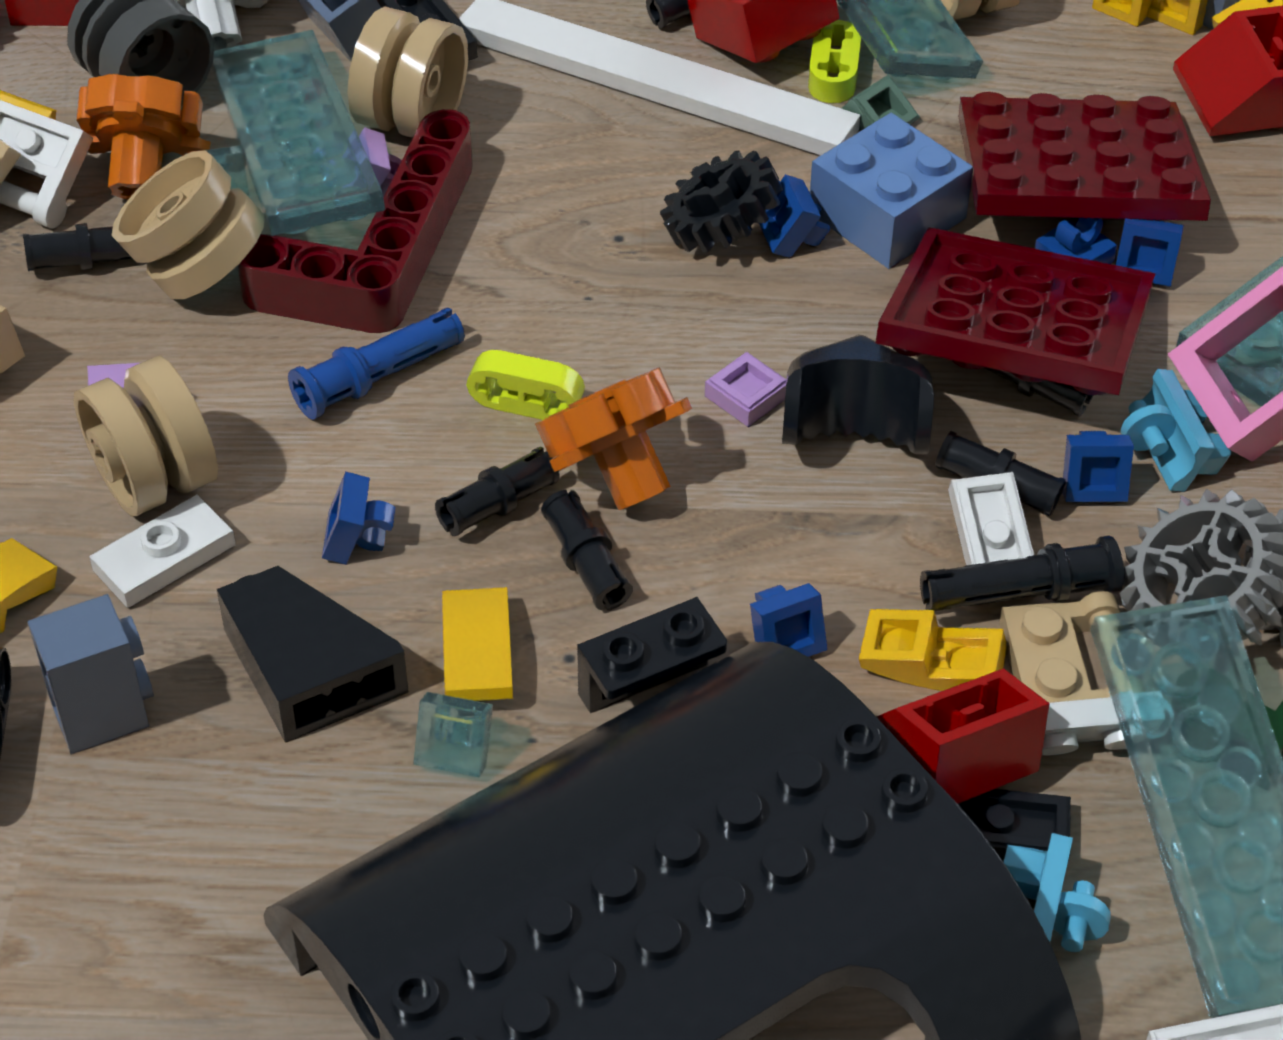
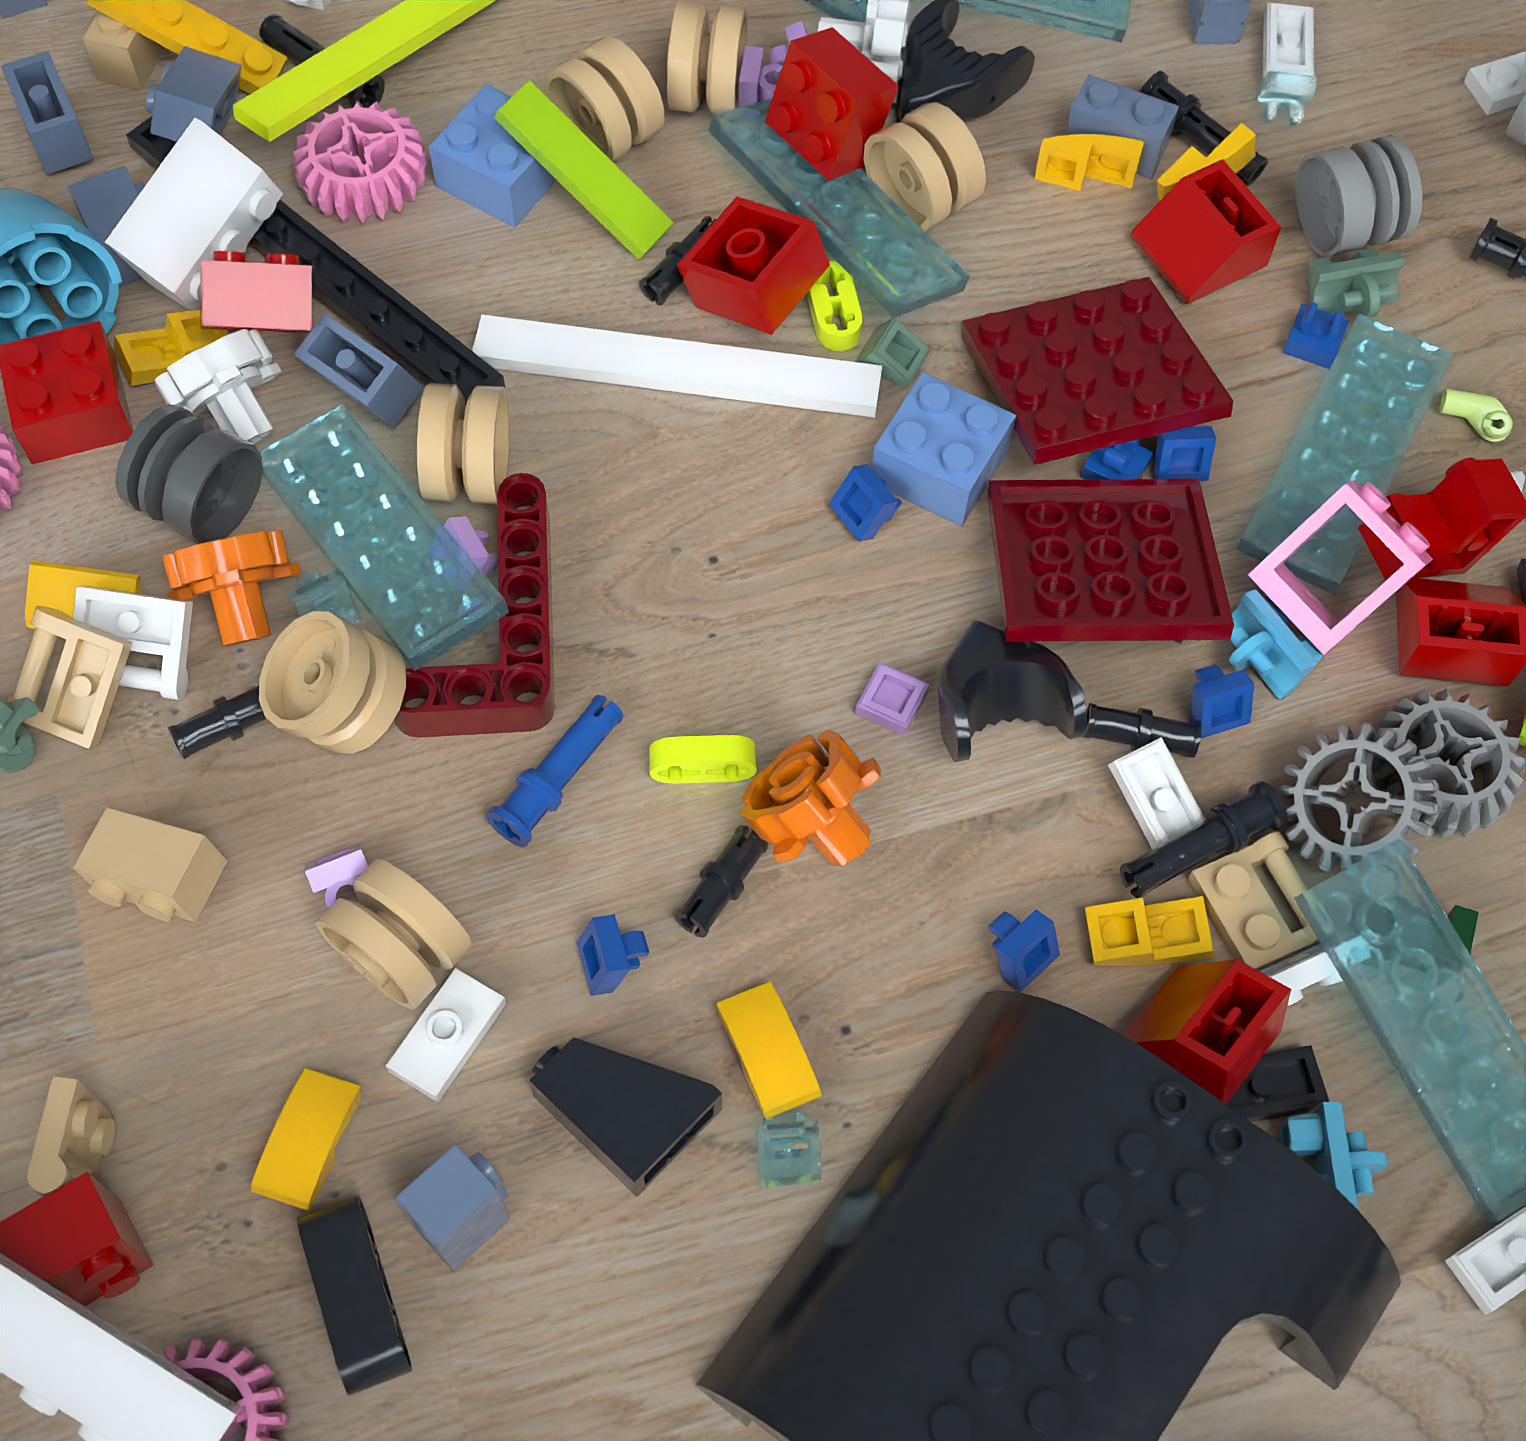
camera: 20 degrees left, 15 degrees up
(586, 550) = (823, 919): black pin -> none
(647, 653) = (931, 1027): black bracket -> none
(721, 201) = (801, 505): black gear -> none

